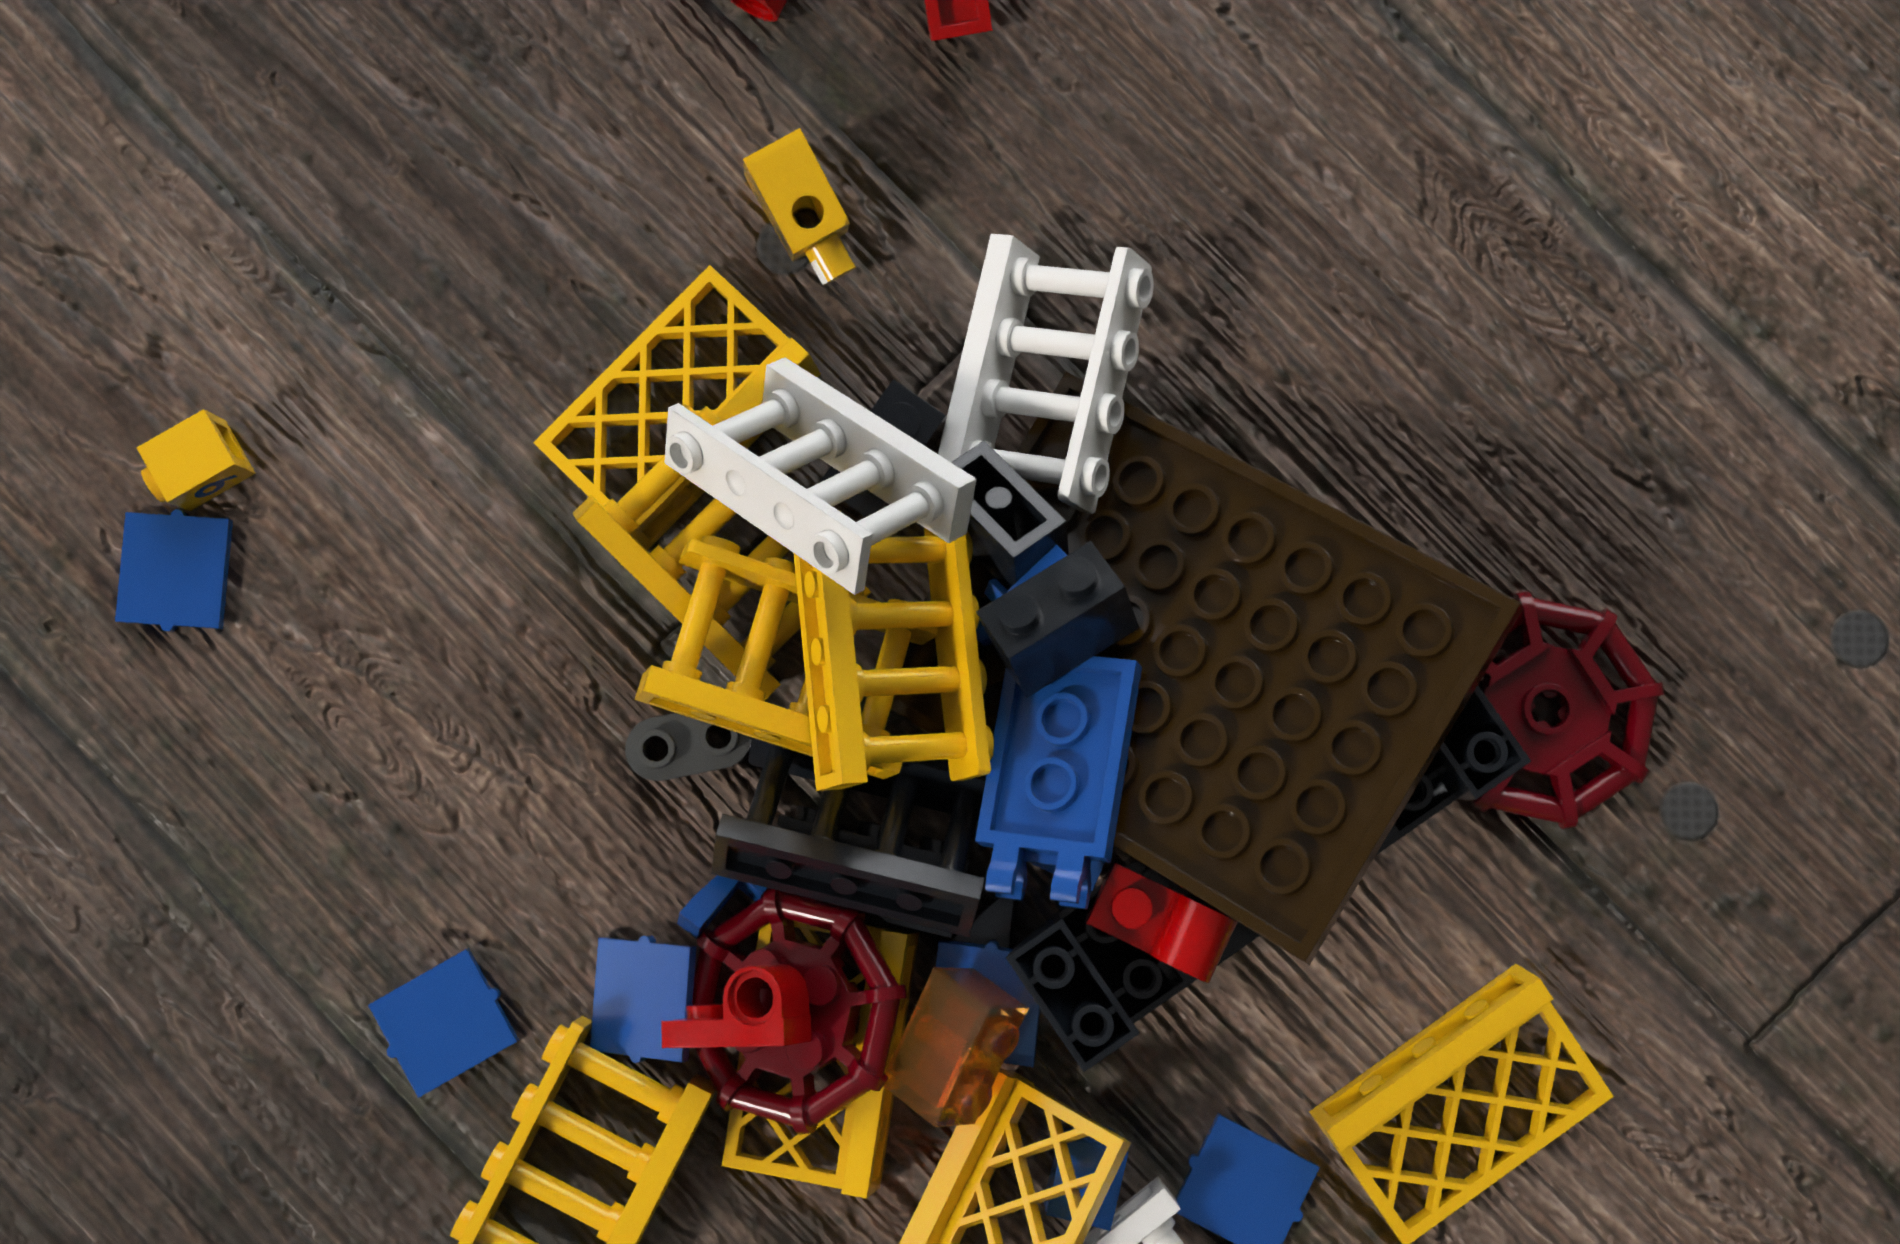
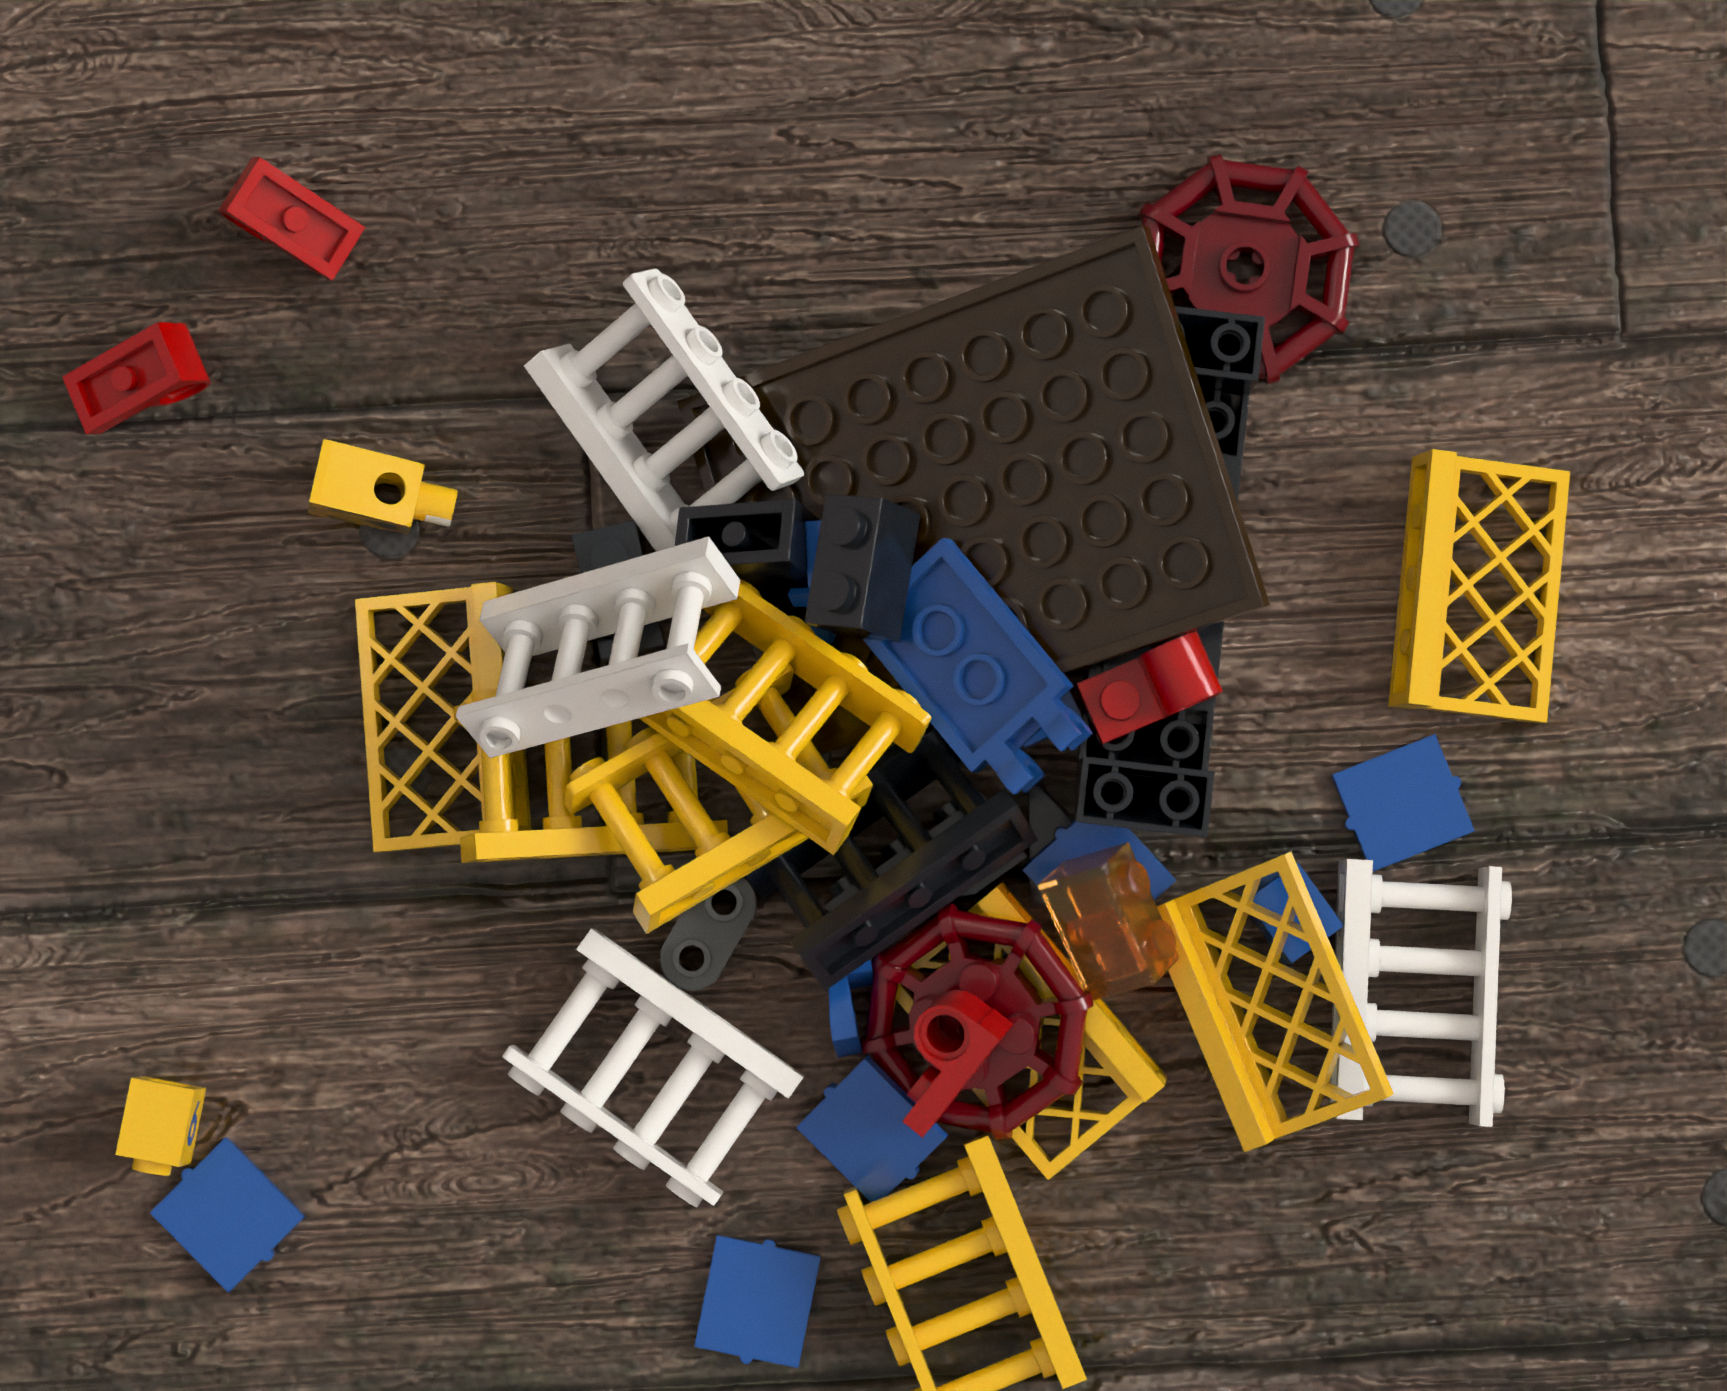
camera: 50 degrees left, 0 degrees up
(607, 818) = (709, 1042): none -> white fence

